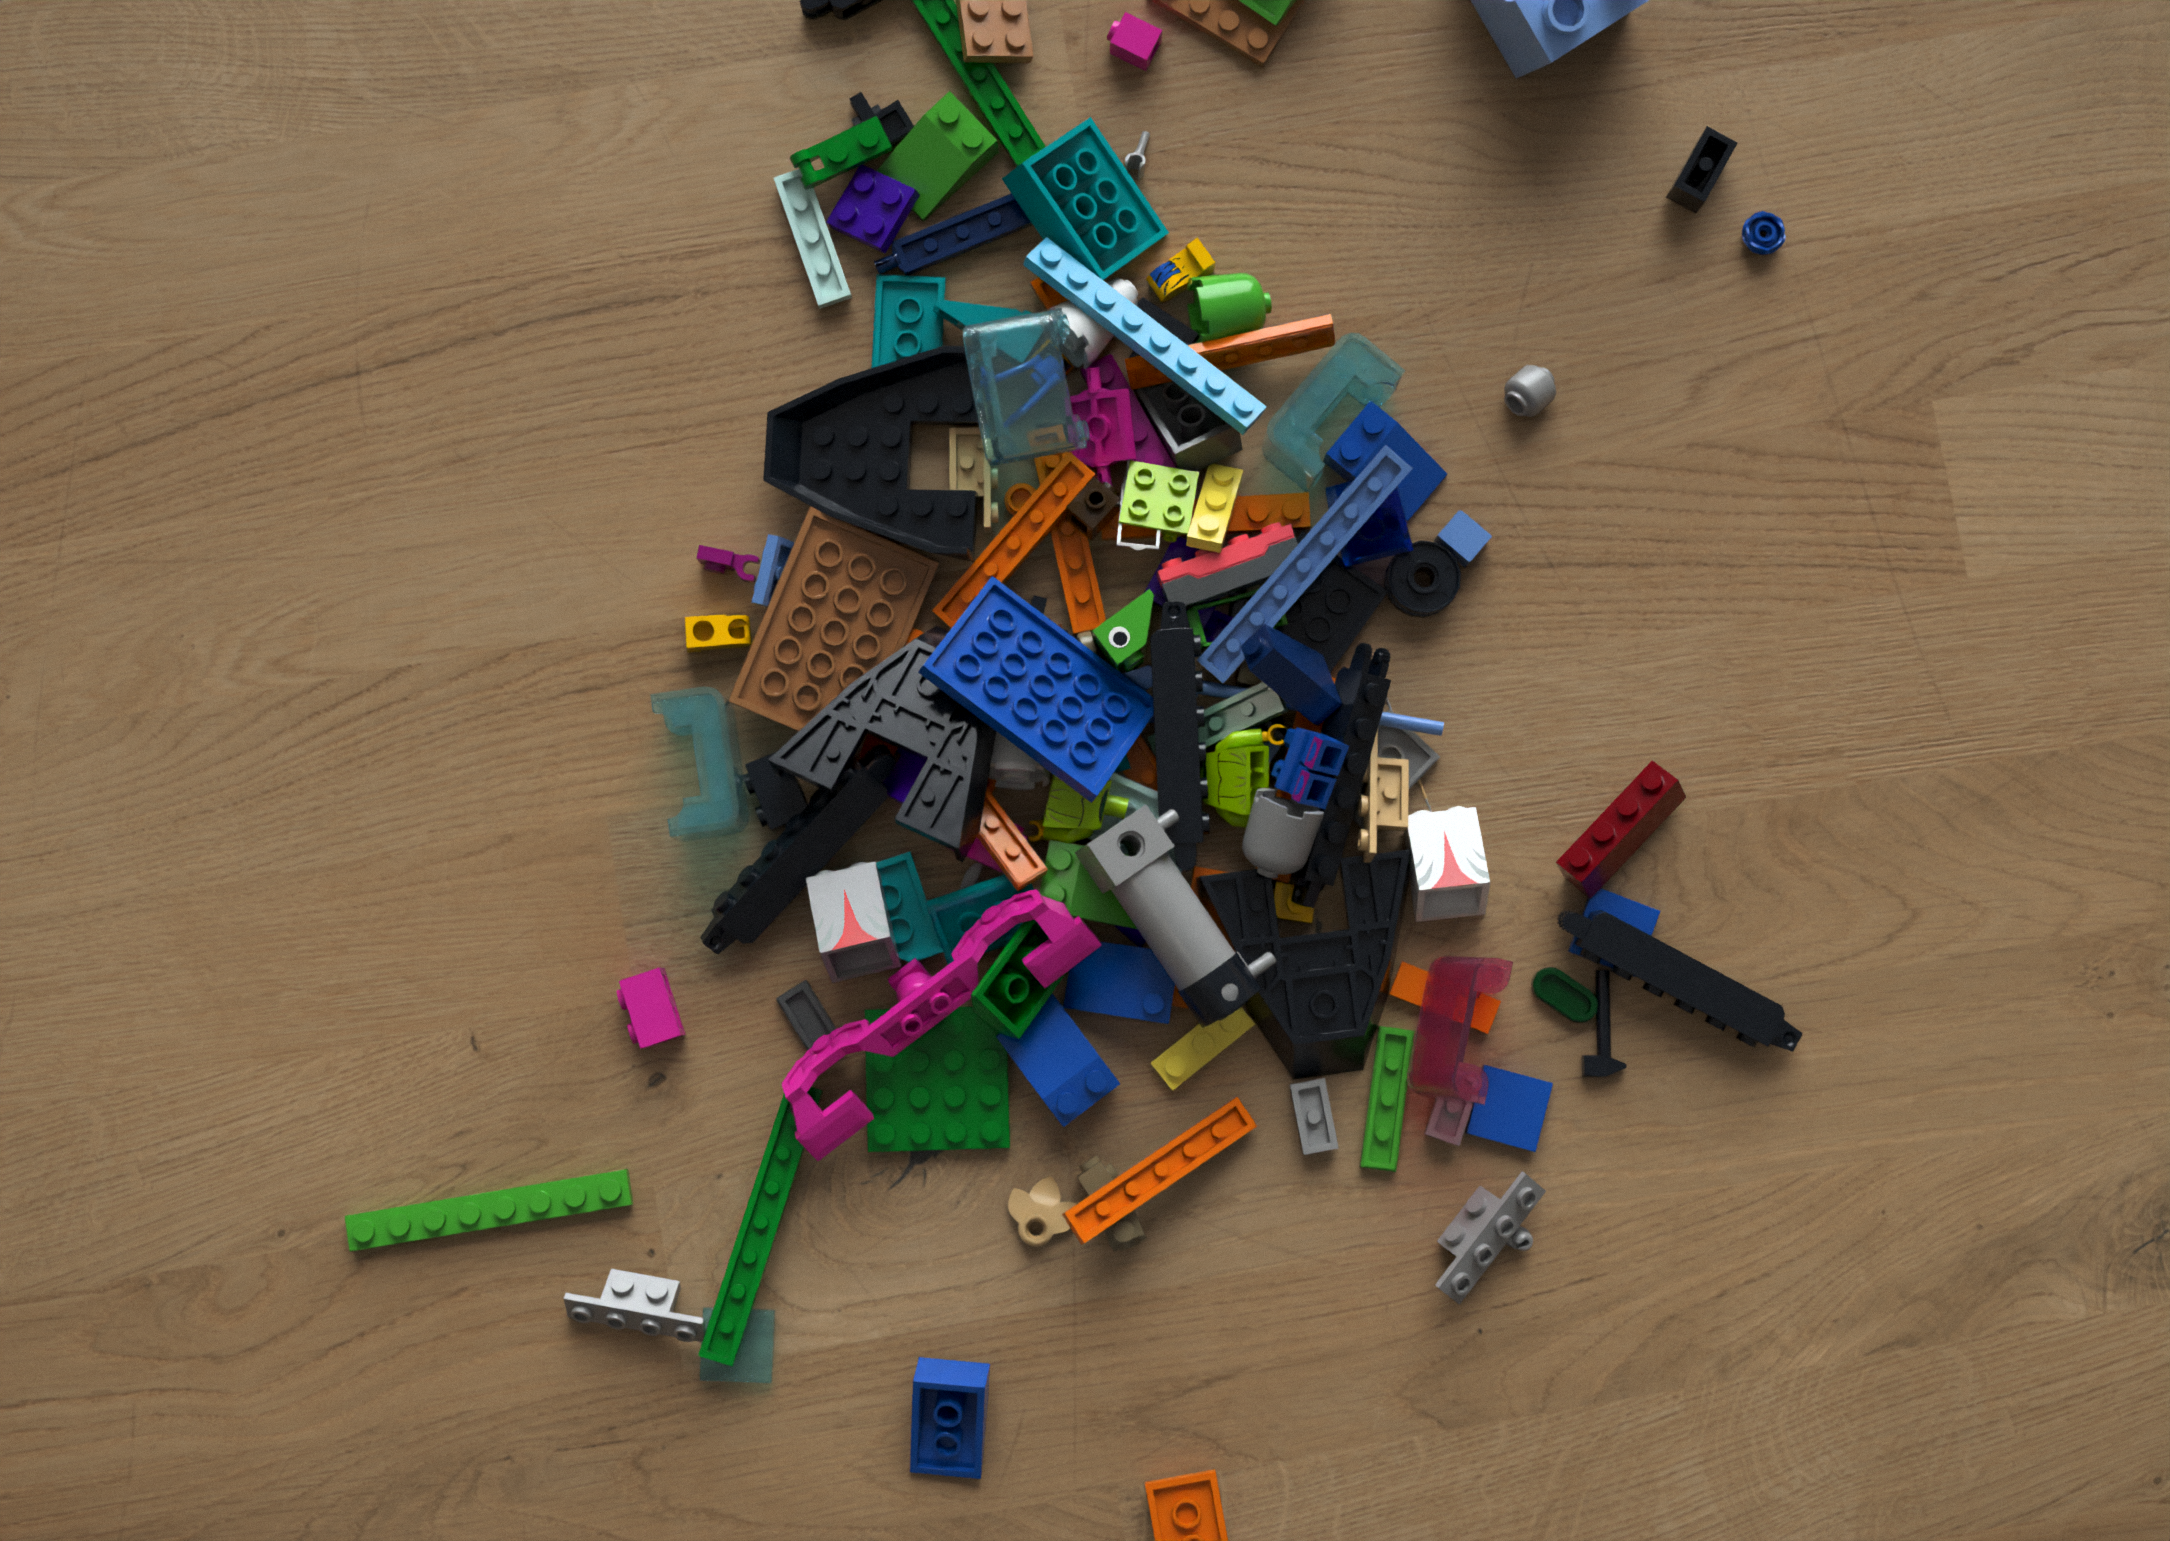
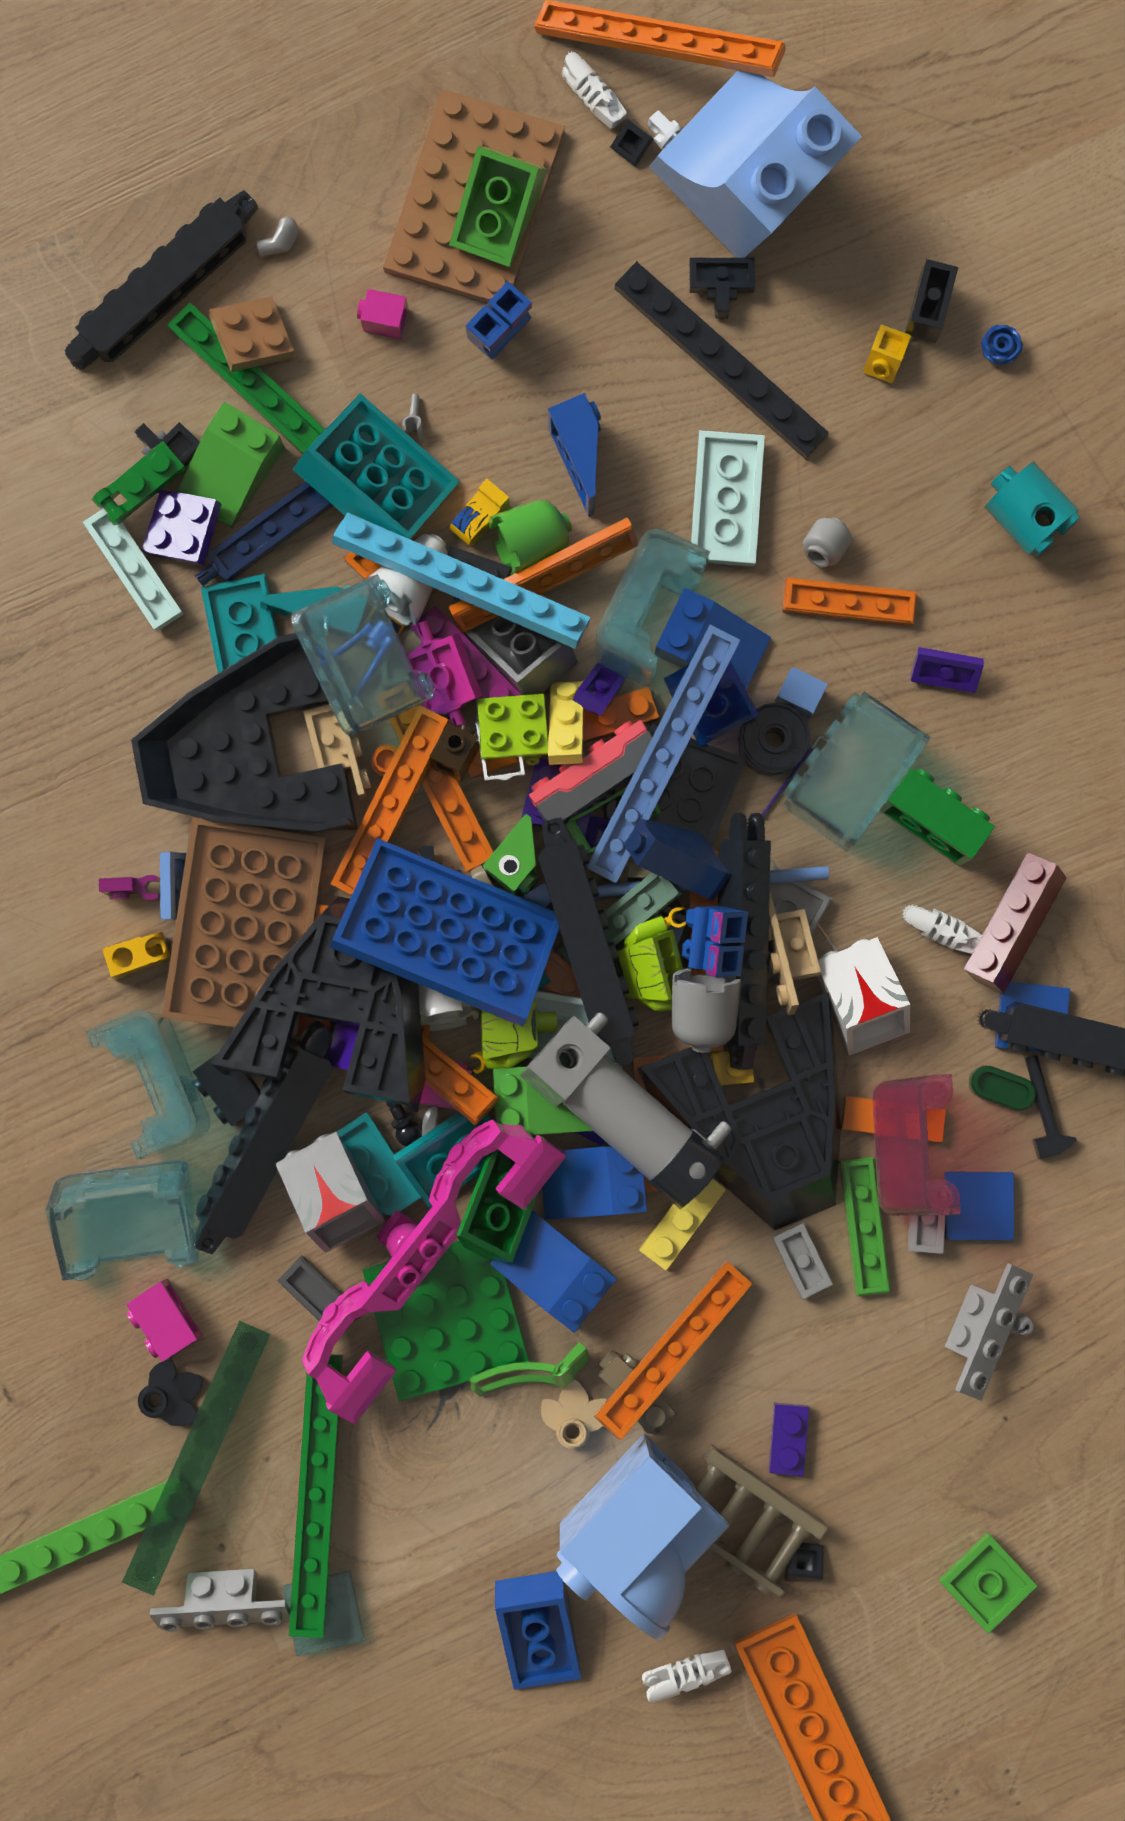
camera: 15 degrees left, 0 degrees up
(637, 894) = (122, 1217): none -> clear light blue windscreen
(644, 1085) = (175, 1394): none -> black plate
(650, 1153) = (196, 1458): none -> clear green plate
(945, 878) = (406, 1129): none -> black bar
(1040, 1165) = (560, 1376): none -> bright green piece
(1068, 1503) = (685, 1675): none -> white hinge
(1077, 1347) = (638, 1537): none -> light blue piece
(1222, 1357) = (776, 1505): none -> dark tan fence
(1237, 1421) = (806, 1564): none -> black slope
(1252, 80) = (500, 321): none -> blue hips
(1253, 1293) = (788, 1439): none -> dark purple plate
(1256, 482) = (599, 689): none -> dark purple plate
(1299, 216) = (575, 434): none -> blue slope
(1418, 1490) = (987, 1582): none -> bright green plate
(1433, 619) = (791, 775): none -> dark purple piece
(1440, 318) = (728, 496): none -> light aqua plate
(1469, 176) = (721, 360): none -> black plate
(1491, 93) = (721, 280): none -> black hinge
(1495, 630) = (854, 770): none -> clear light blue windscreen
(1537, 458) = (849, 601): none -> orange tile
(1545, 816) = (942, 928): none -> white hinge
(1568, 700) = (937, 817): none -> green brick
(1619, 553) = (947, 669): none -> dark purple plate
(1642, 212) = (886, 354): none -> yellow bracket
(1748, 396) = (1024, 497): none -> teal cylinder

